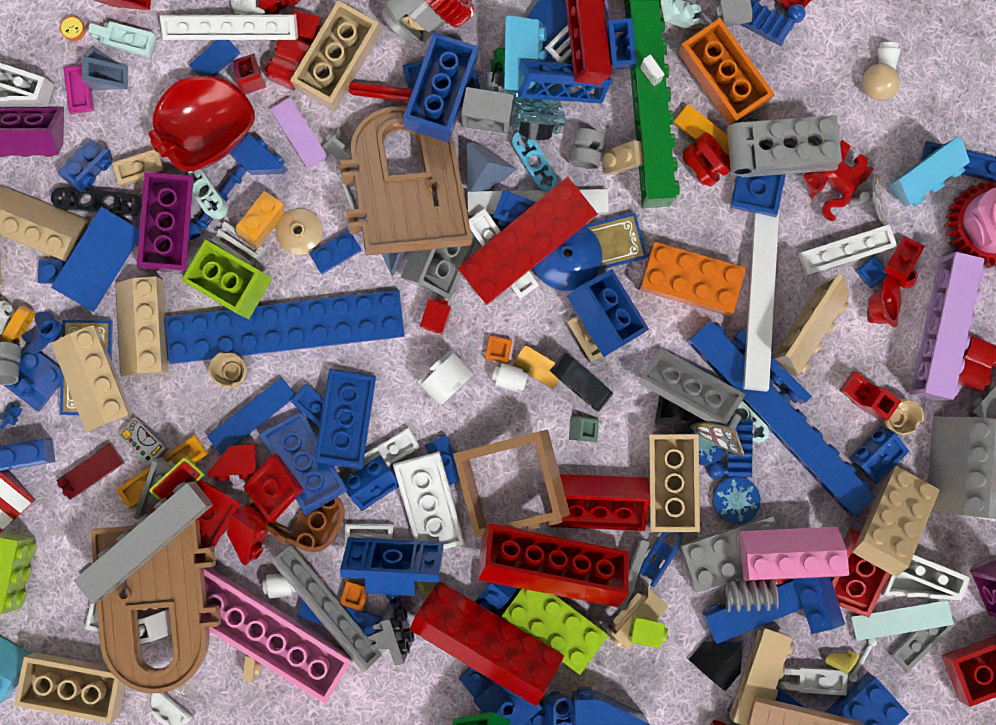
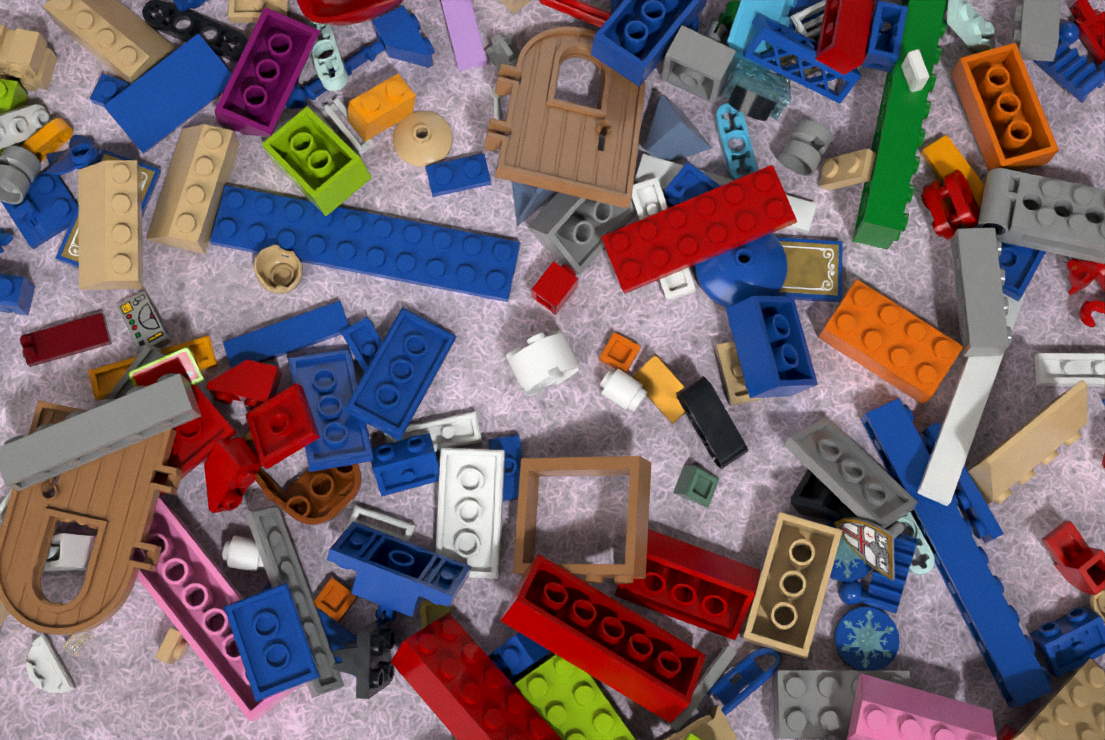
camera: 20 degrees right, 10 degrees down
(322, 645) = (272, 642): none -> blue tile
(746, 222) = (980, 292): none -> light grey brick

